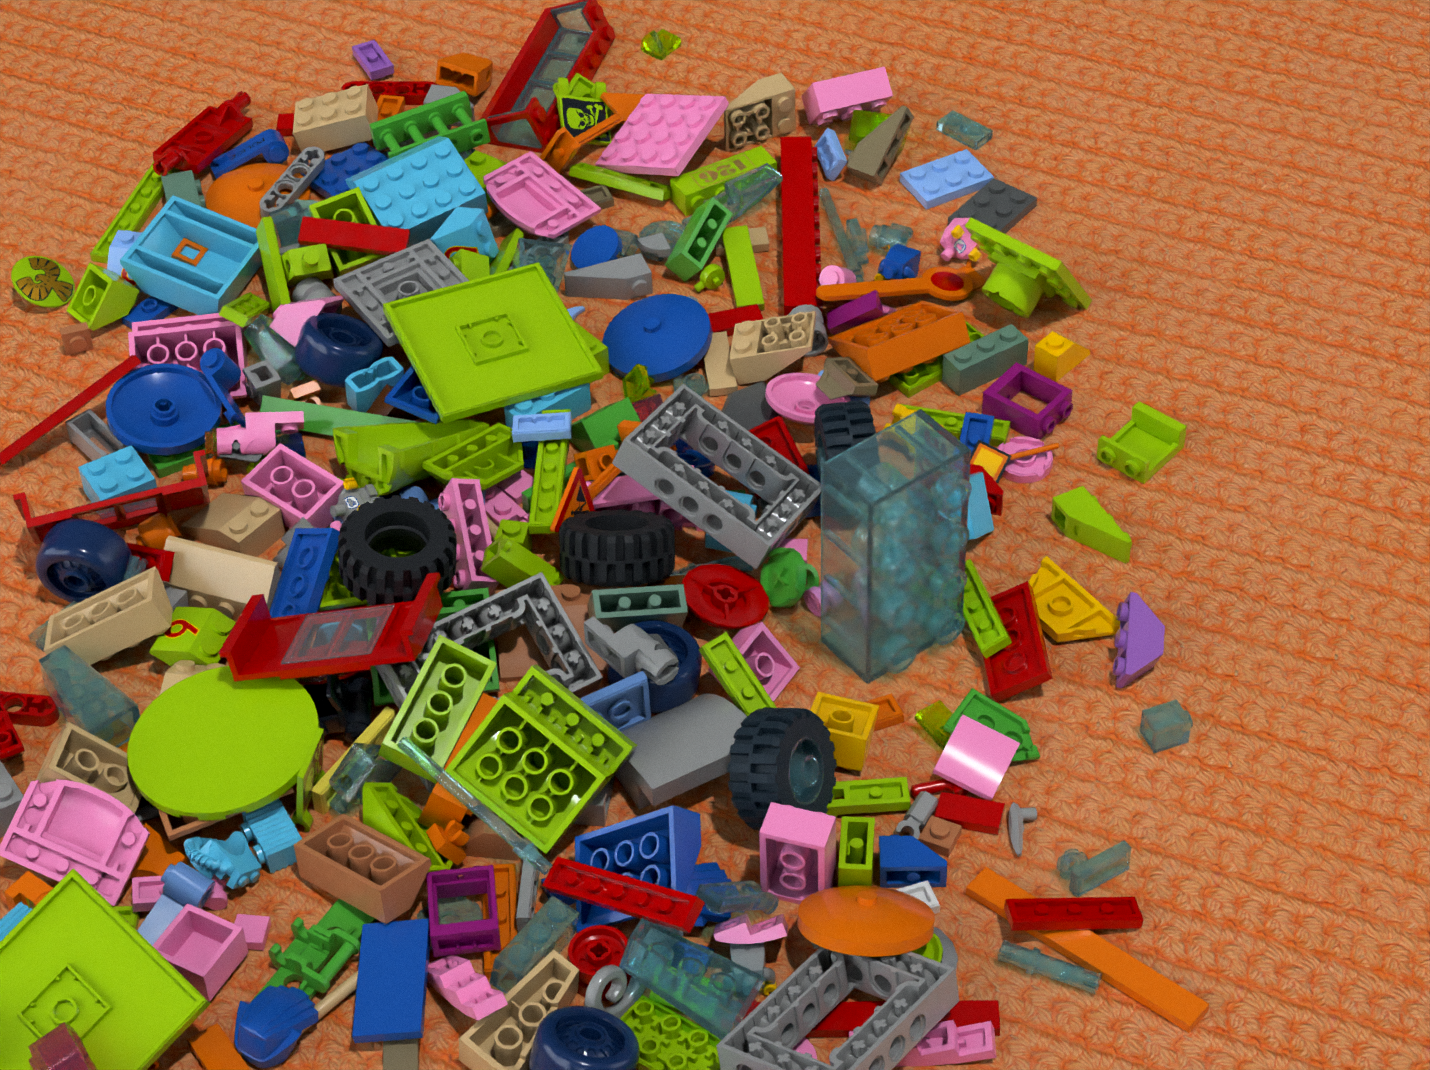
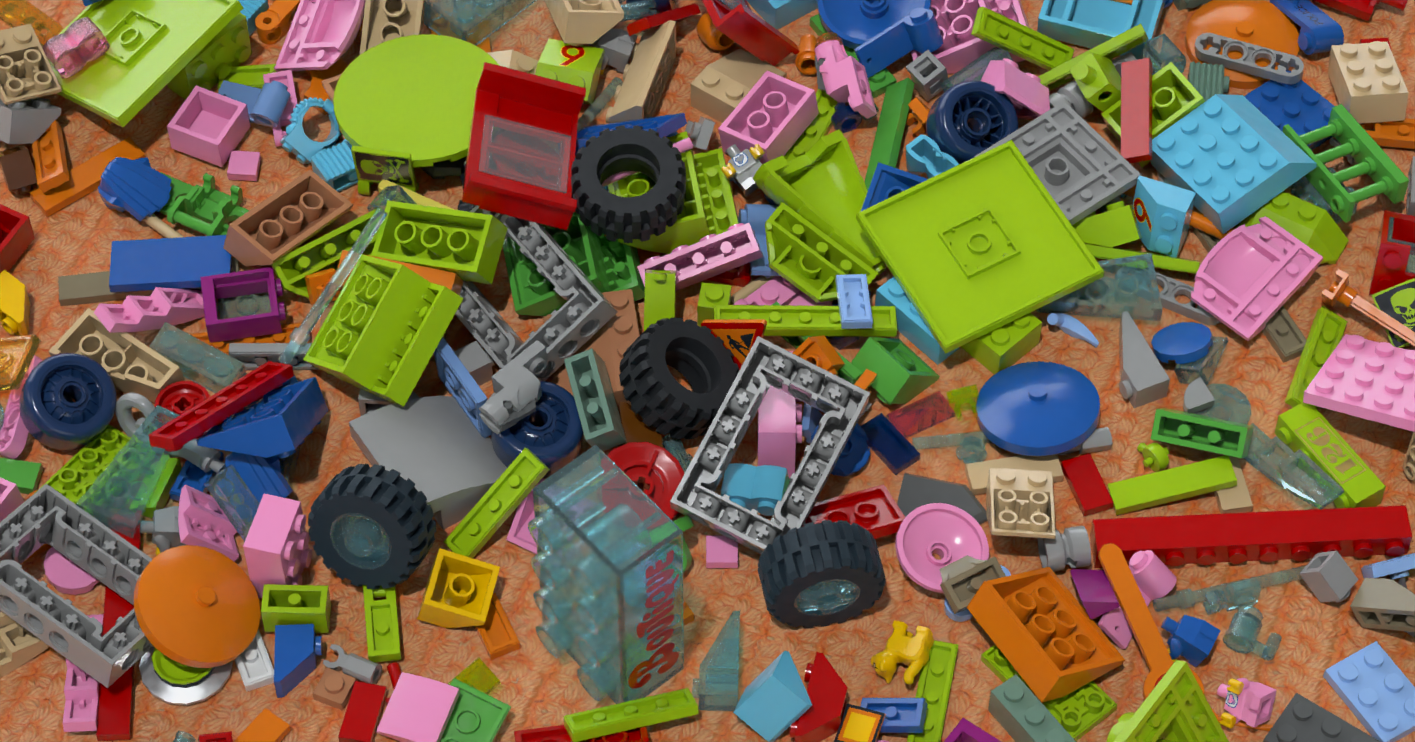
camera: 85 degrees right, 10 degrees up
(843, 186) = (1329, 577): none -> light grey brick

